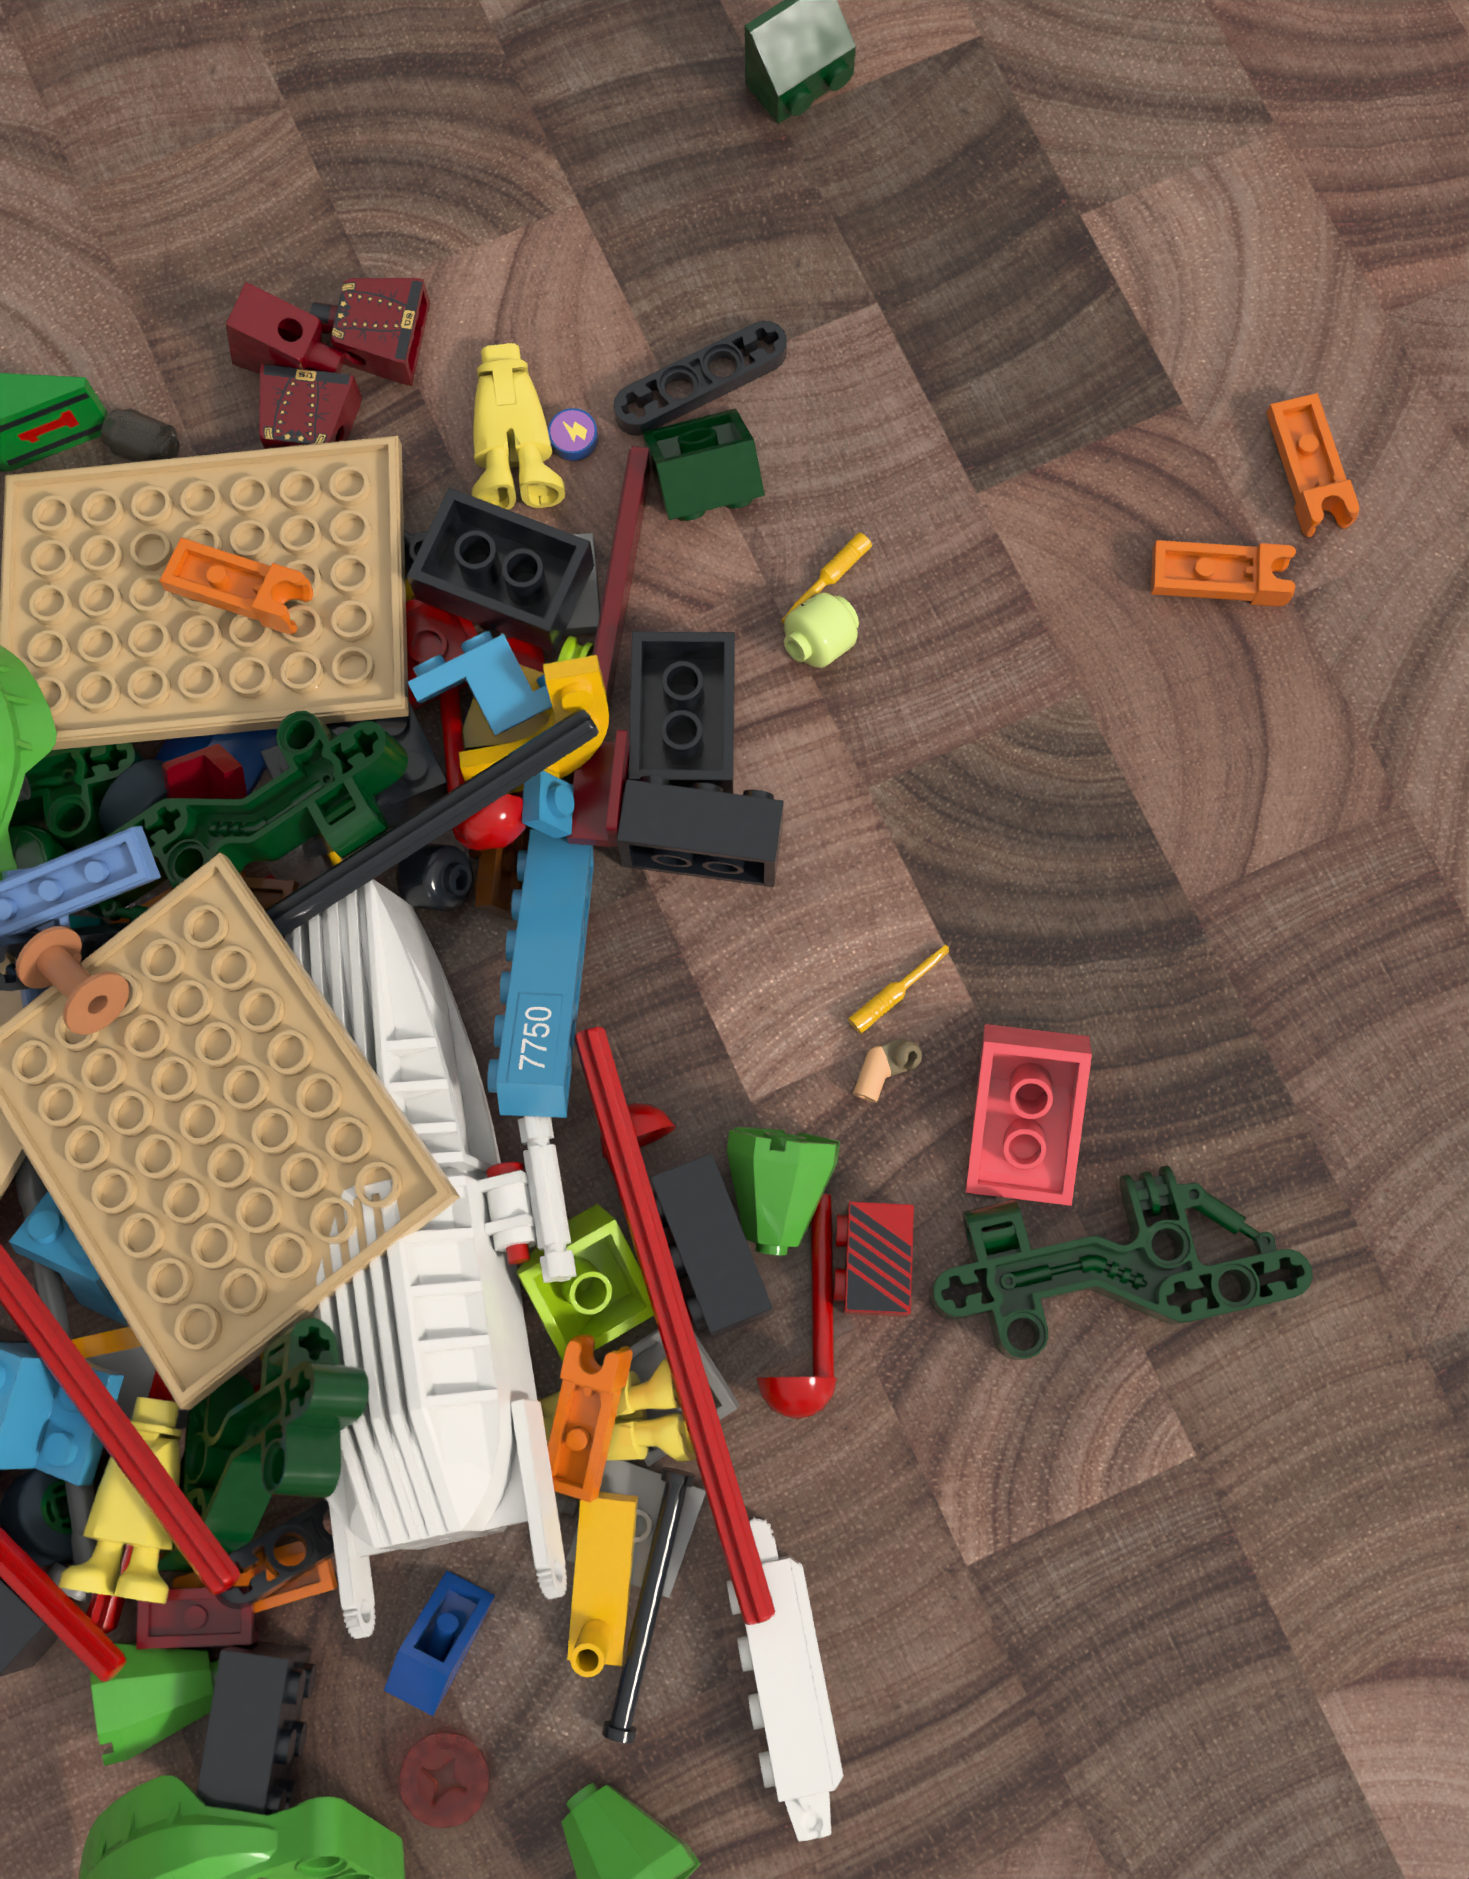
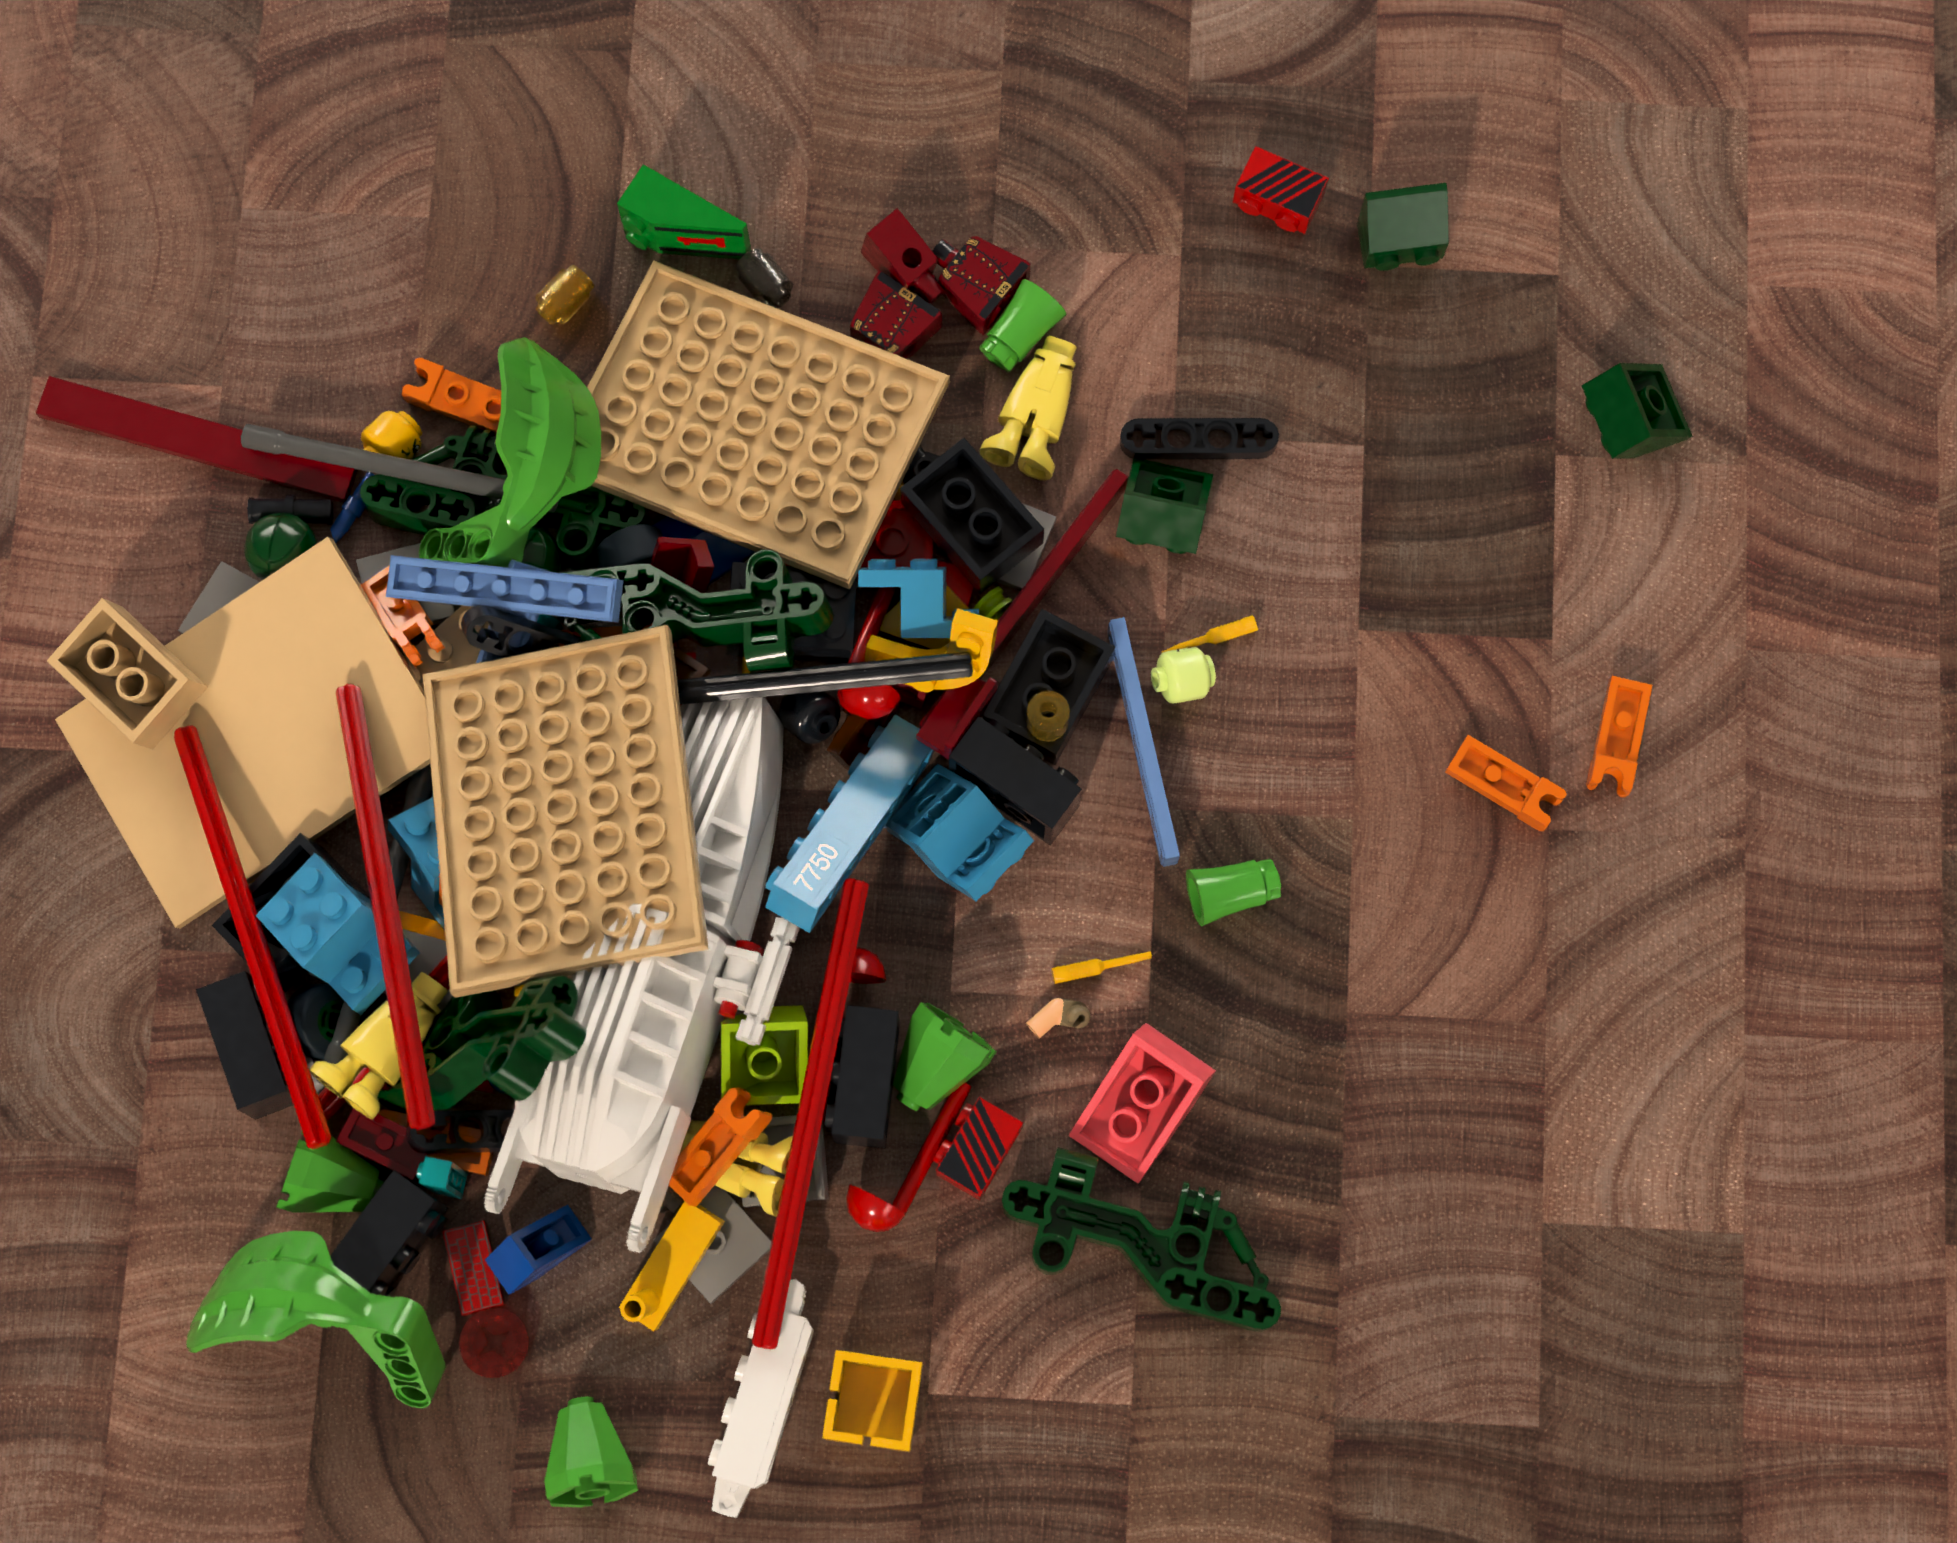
camera: 25 degrees right, 0 degrees up
(55, 960) = (517, 642): nougat piece -> none
(236, 584) = (775, 431): orange plate -> none
(284, 1624) = (442, 1177): none -> teal piece
(381, 1718) = (473, 1278): none -> red tile
(448, 349) = (1021, 325): none -> bright green plant
(548, 805) = (914, 706): dark azure plate -> none
(573, 434) = (1081, 433): tile -> none
(620, 1725) = (755, 1227): black bar -> none
(647, 82) = (1279, 190): none -> red brick
(669, 921) = (958, 832): none -> dark azure bracket
(708, 753) = (1043, 727): none -> clear yellow brick
(819, 726) = (1143, 743): none -> medium blue tile
(916, 1609) = (874, 1400): none -> yellow piece
(996, 831) = (1231, 888): none -> bright green plant
(1138, 126) = (1635, 410): none -> dark green slope

